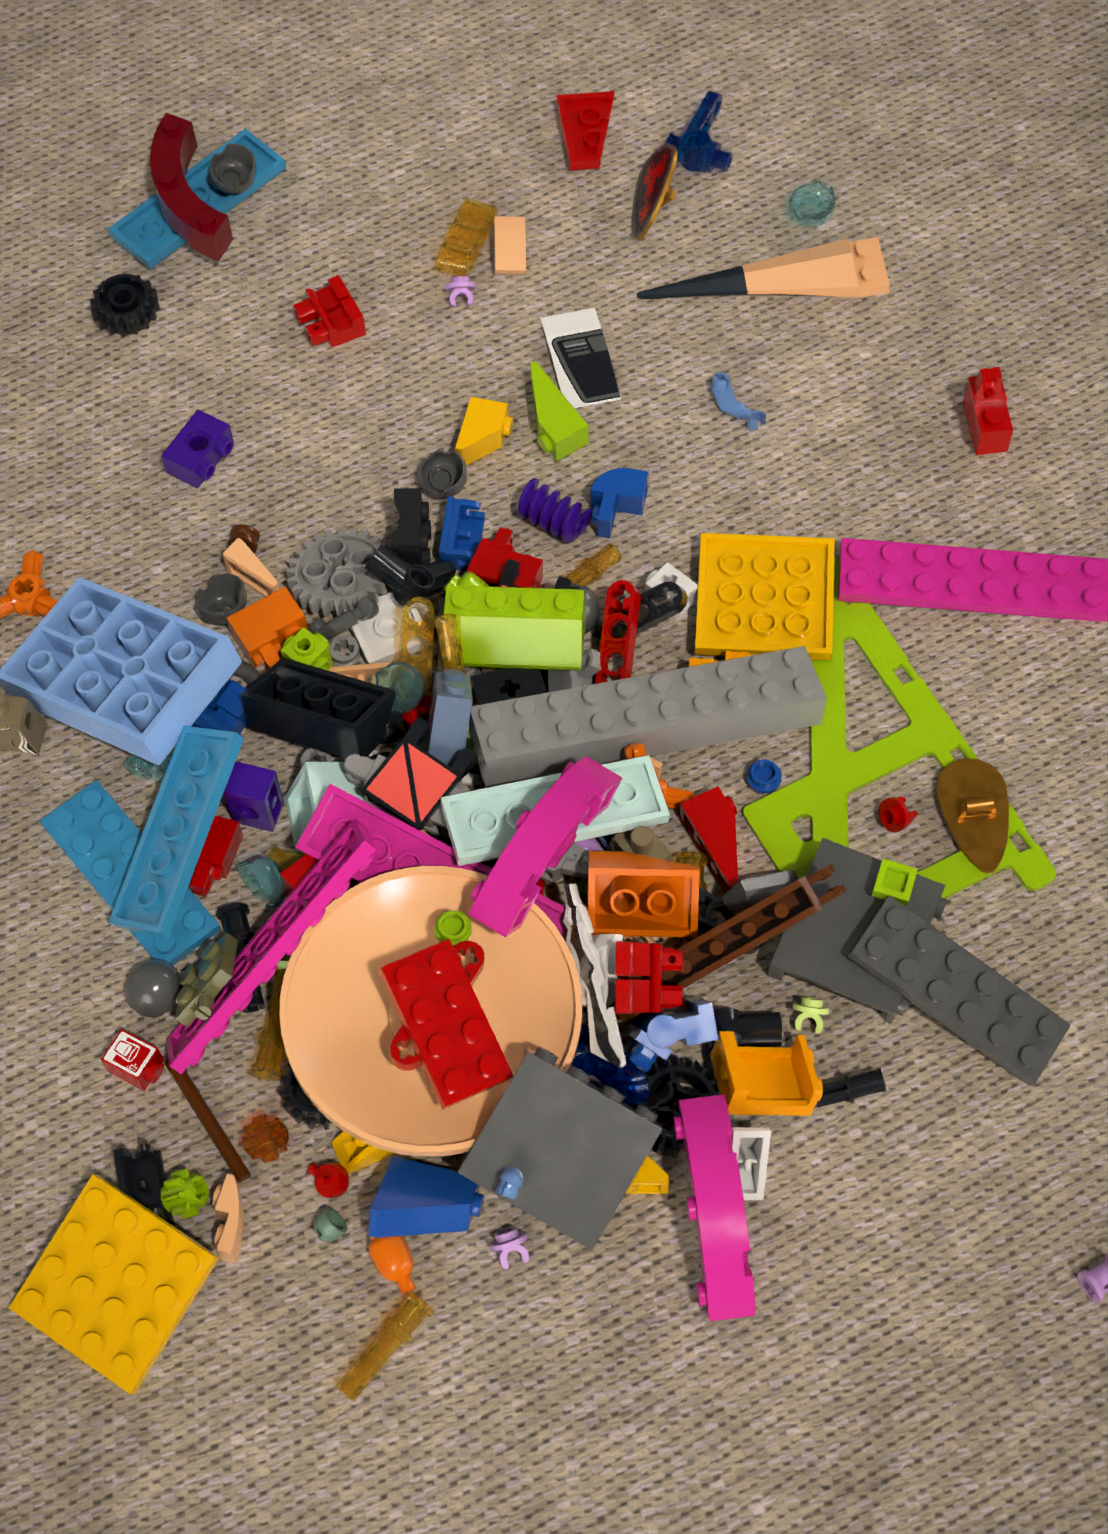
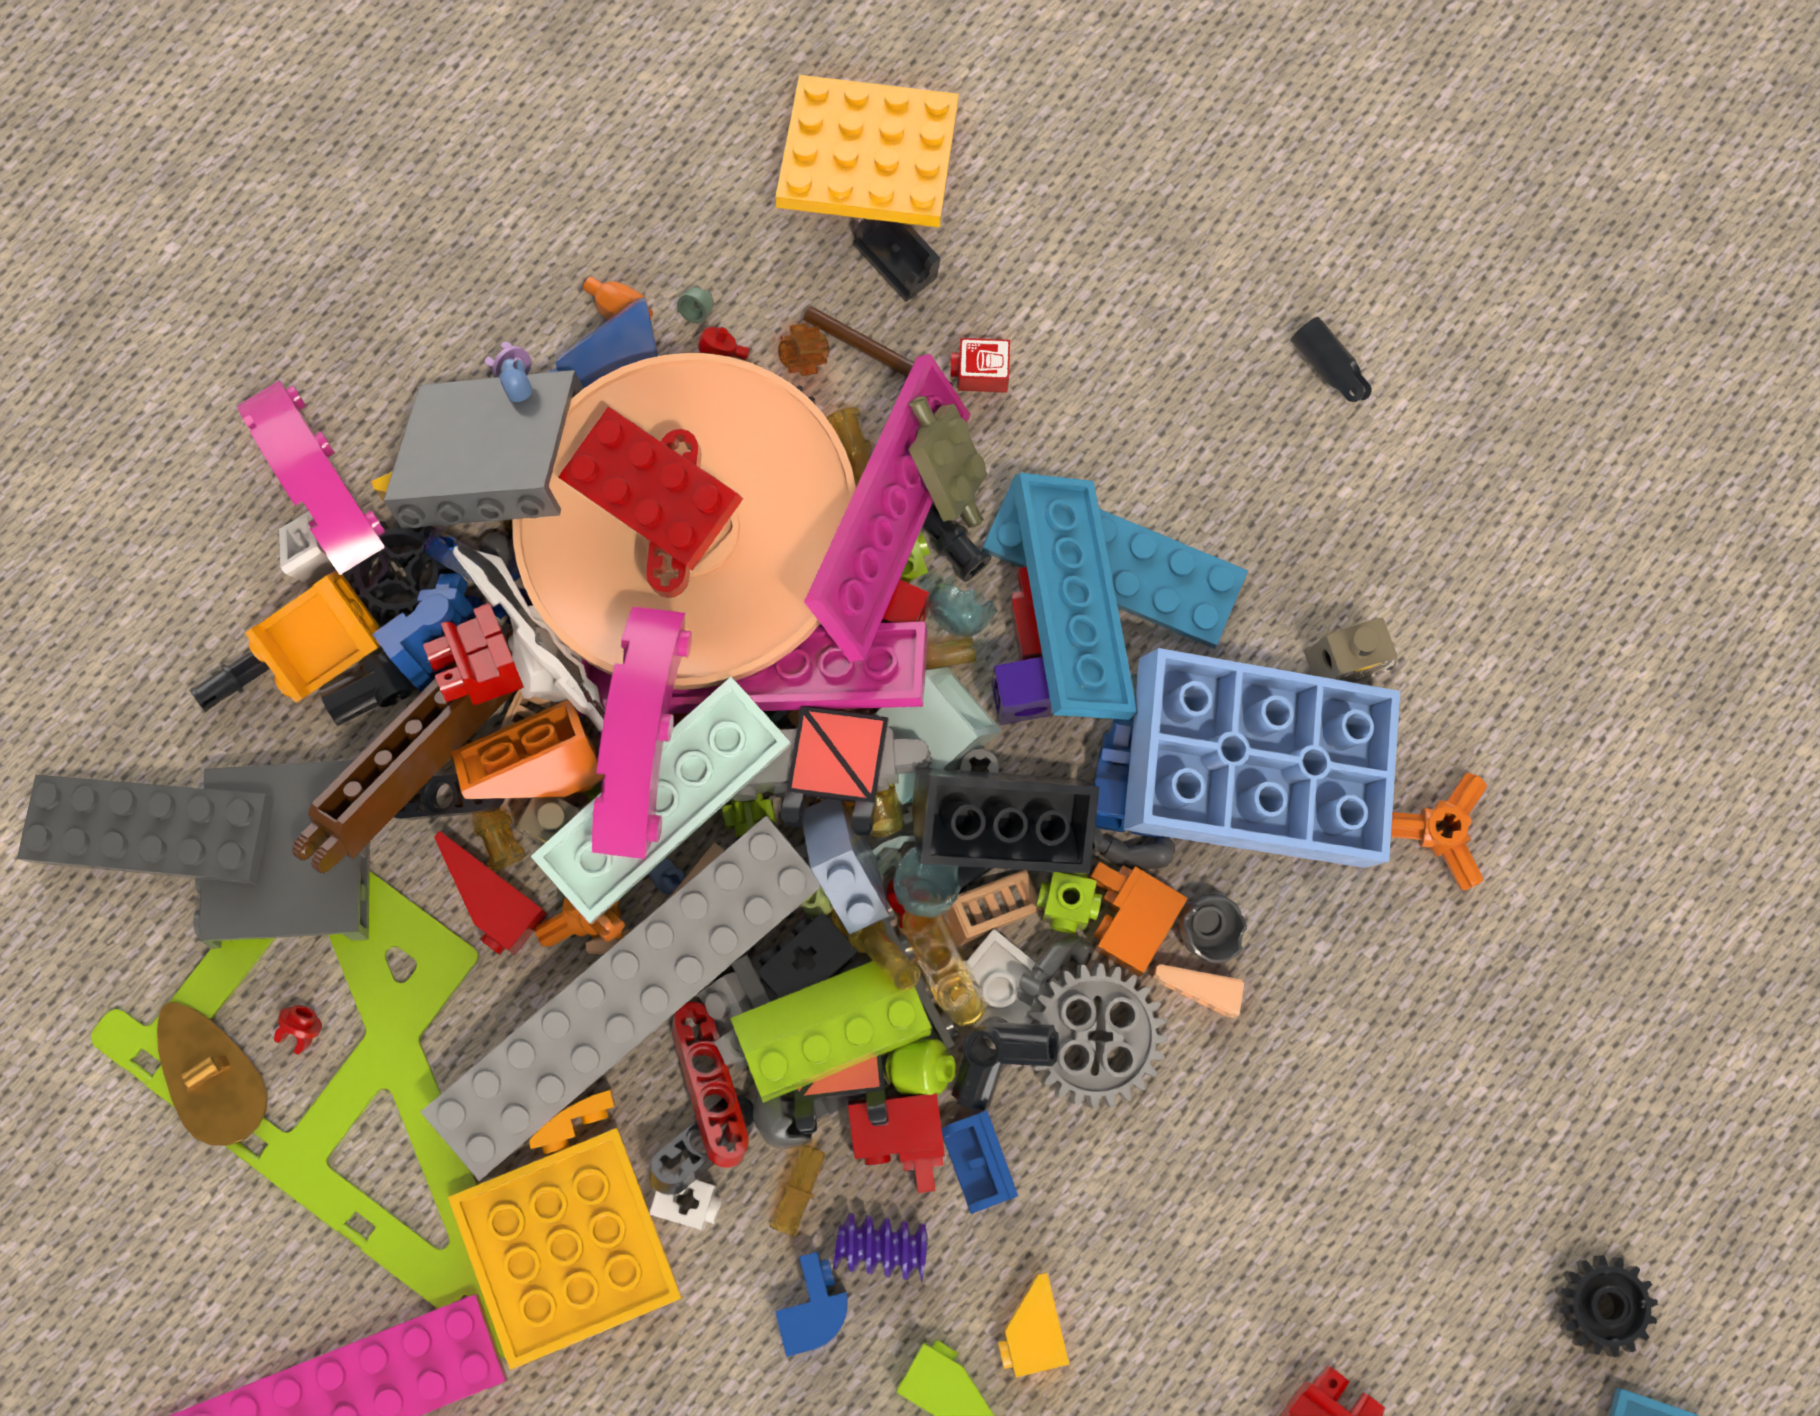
camera: 150 degrees right, 15 degrees up
(152, 988) = (1010, 447): dark grey hair -> none
(184, 455) = (1386, 1106): dark purple brick -> none
(184, 1193) = (851, 262): lime gear -> none
(229, 1208) = (796, 266): light nougat slope -> none
(245, 533) = (1239, 1028): reddish brown bush -> none
(344, 641) = (1039, 925): light grey bush -> none
(396, 1331) = (579, 237): clear yellow pin -> none
(414, 527) = (1040, 1135): black brick -> none
(443, 474) = (1056, 1244): dark grey hair -> none
(453, 926) = (699, 599): lime plate -> none
(753, 890) = (406, 844): dark grey brick -> none
(764, 776) = (470, 1006): blue plate -> none
(810, 1008) = (304, 744): yellowish green plate -> none
(895, 880) = (251, 906): lime plate -> none

